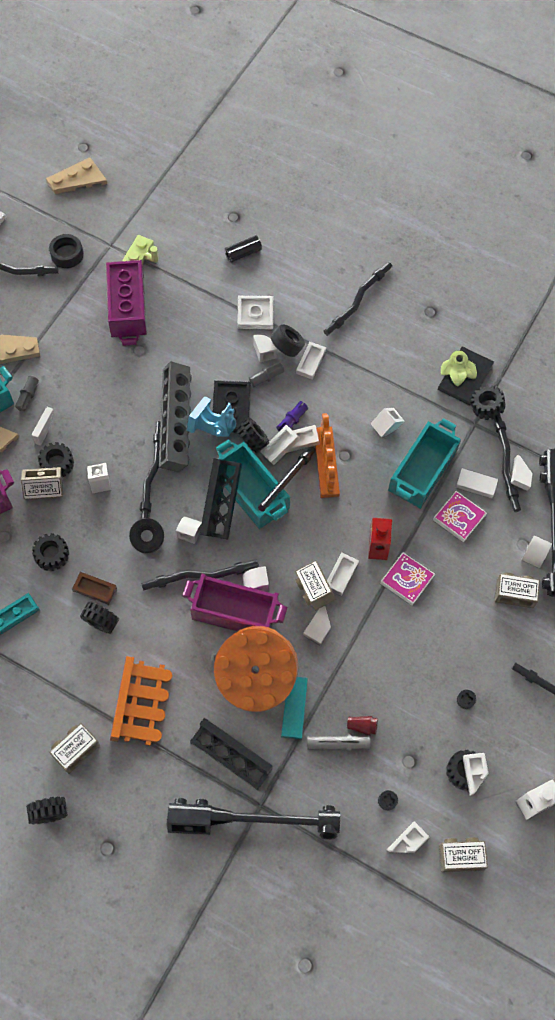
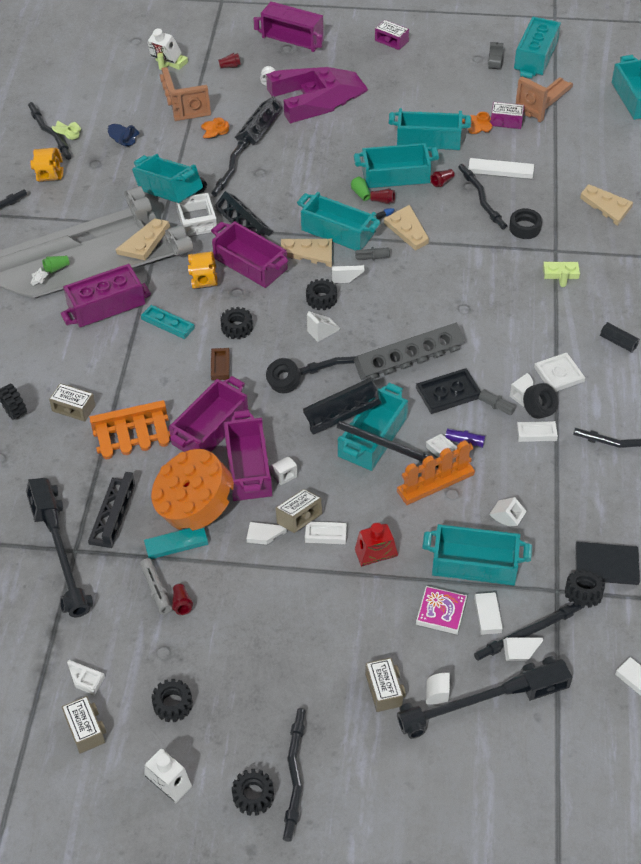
camera: 70 degrees right, 15 degrees down
(42, 483) = (293, 291): brick -> none
(99, 617) = (190, 371): black tyre -> none
(126, 300) = (501, 274): magenta container -> none
(161, 581) = (287, 451): black bar -> none
(169, 622) = (202, 422): none -> magenta container
(188, 529) = (304, 399): white brick -> none
(212, 423) = (419, 378): medium azure tile -> none
(252, 435) = (422, 417): black tyre -> none
(280, 445) = (428, 436): white tile -> none
(393, 796) = (111, 644): black bush -> none
(407, 578) = (349, 587): tile -> none
(459, 370) = (605, 550): yellowish green plate -> none
(471, 695) = (252, 678): black bush -> none
(475, 770) = (169, 702): white tile -> none

